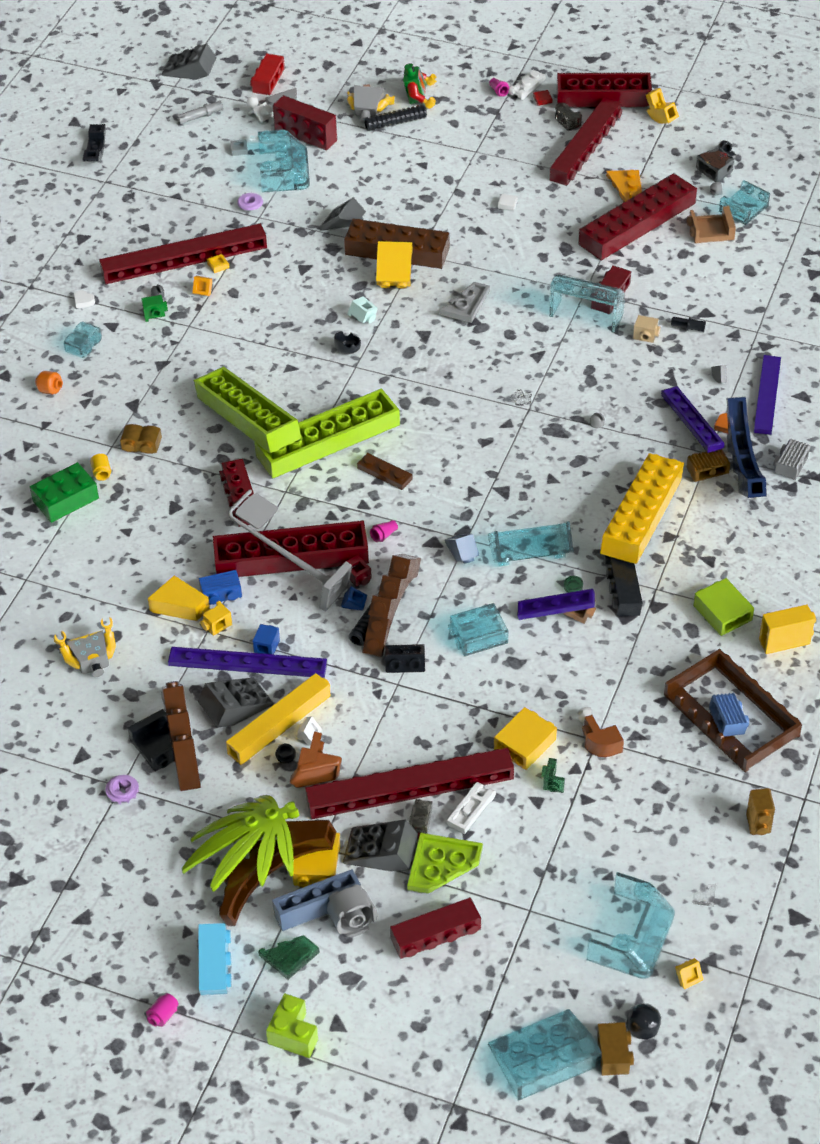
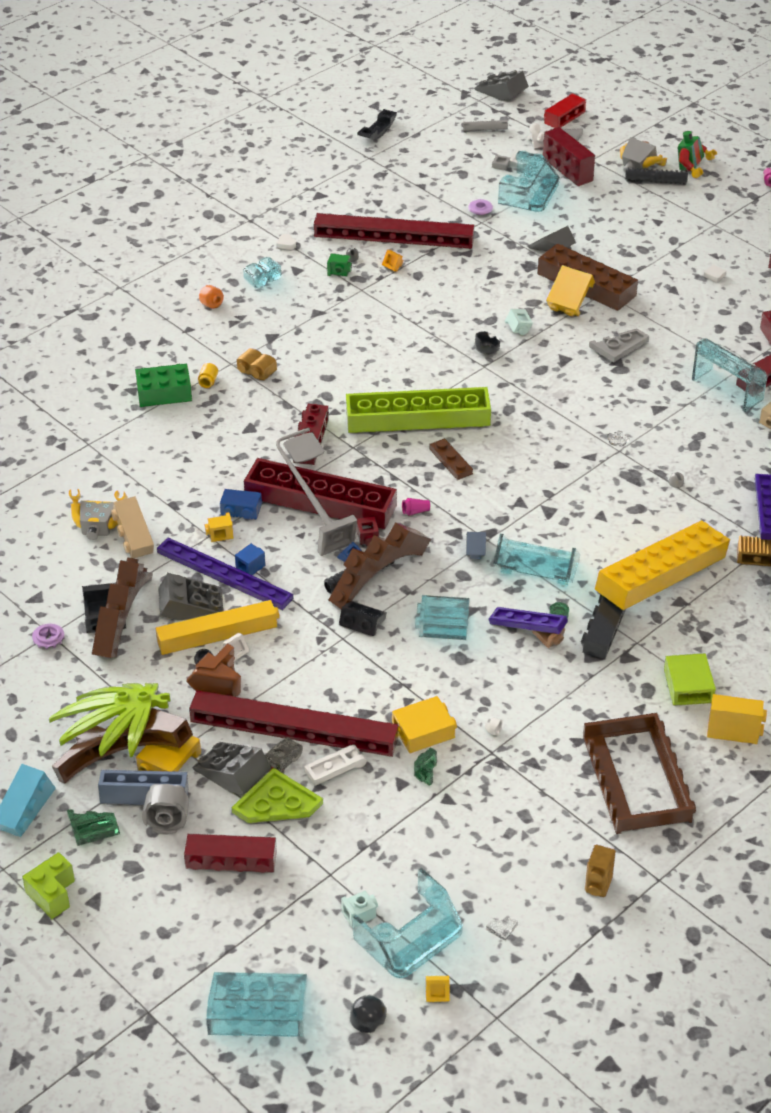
camera: 25 degrees right, 5 degrees down
(136, 650) = (132, 527): none -> tan brick
(178, 600) = (197, 501): yellow slope -> none
(218, 263) = (419, 247): yellow tile -> none
(247, 409) = (355, 366): lime brick -> none
(577, 930) = (360, 905): none -> light aqua brick
(602, 742) = (494, 754): dark orange brick -> none
(614, 1043) = (321, 1025): pearl gold brick -> none
(728, 714) = (630, 775): medium blue brick -> none

